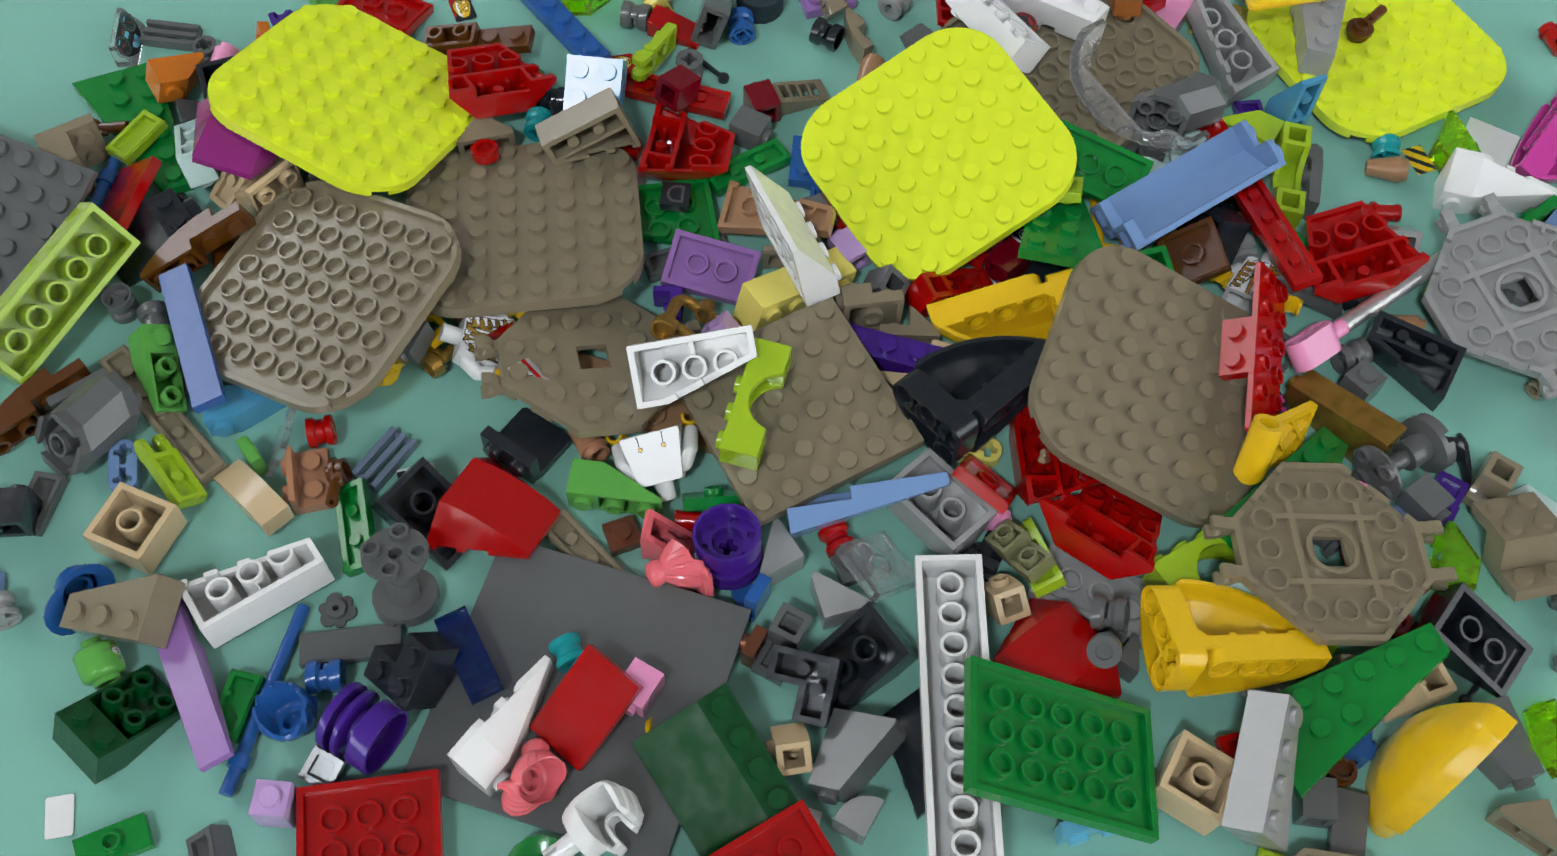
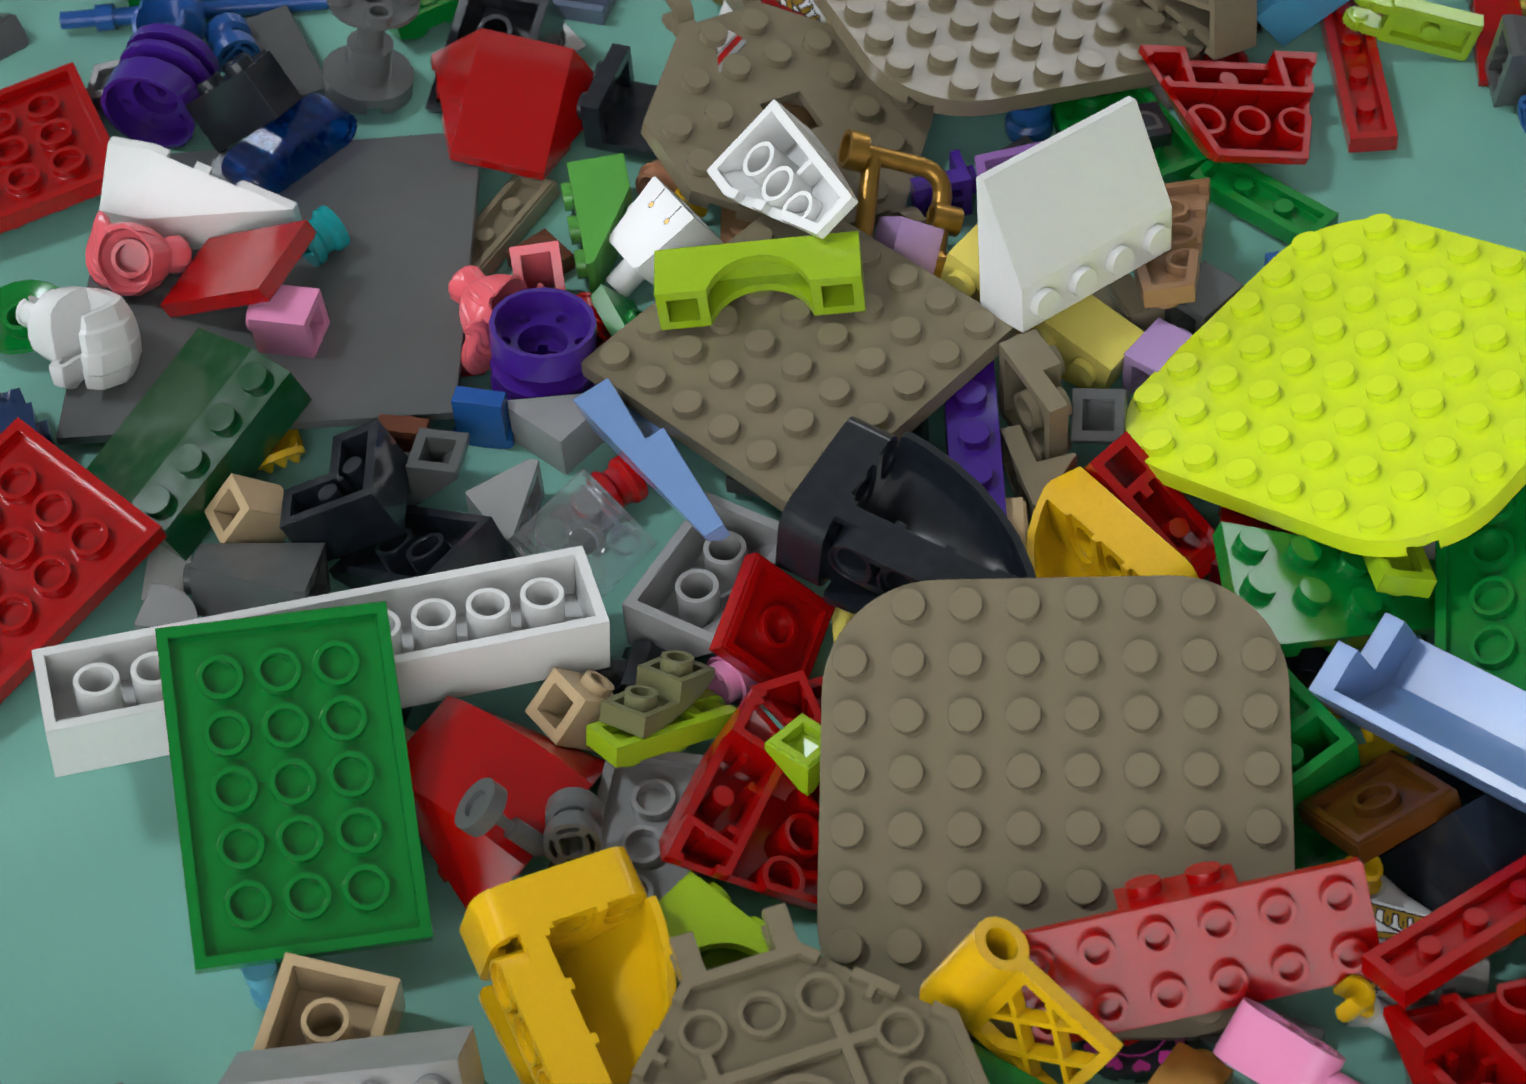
camera: 80 degrees right, 10 degrees down
(274, 804) = (51, 46): lavender brick -> none
(339, 618) = (330, 33): dark grey plant -> none
(678, 88) = (1346, 59): dark red brick -> none
(692, 60) = (1426, 78): dark grey wheel -> none
(723, 77) = (1439, 129): black hinge -> none
(751, 128) = (1340, 178): dark grey brick -> none
(762, 98) = (1402, 179): dark red brick -> none
(792, 104) = (1441, 196): dark tan slope -> none
(1082, 489) = (798, 752): none -> lime slope

